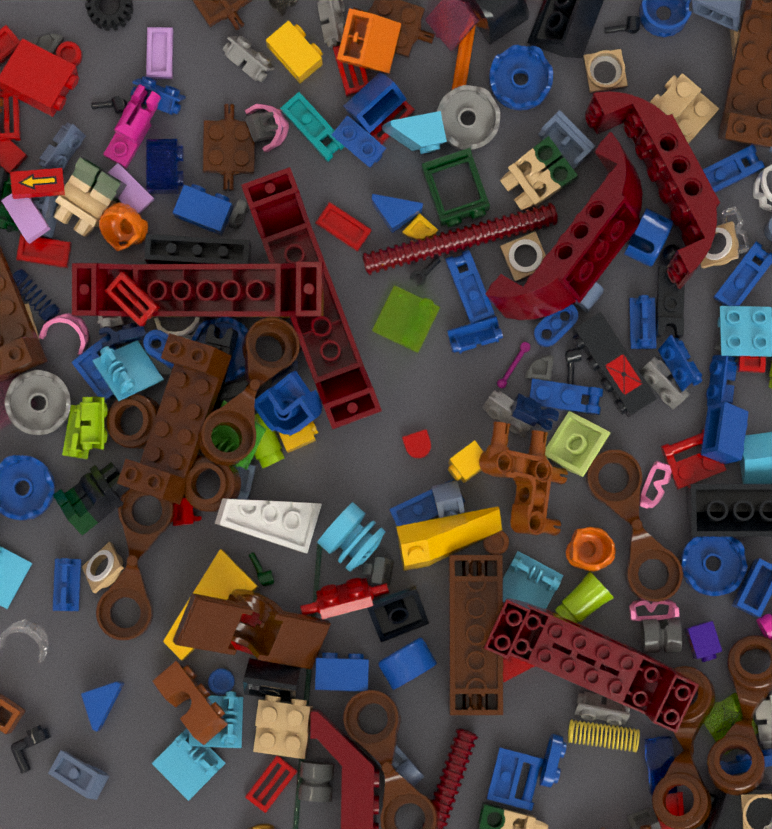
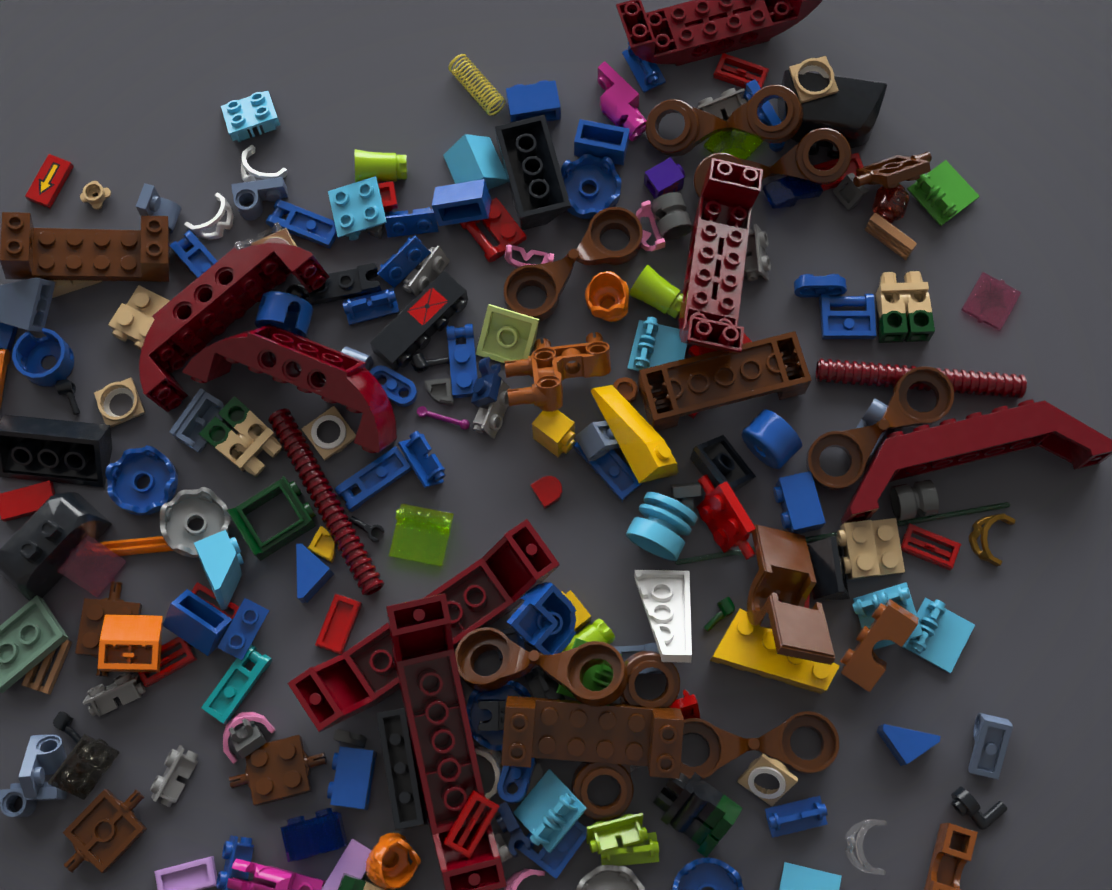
camera: 105 degrees left, 10 degrees down
(221, 681) = (844, 624): blue tile -> none
(295, 51) = (156, 725): yellow piece -> none
(572, 725) = (787, 261): light yellow piece -> none

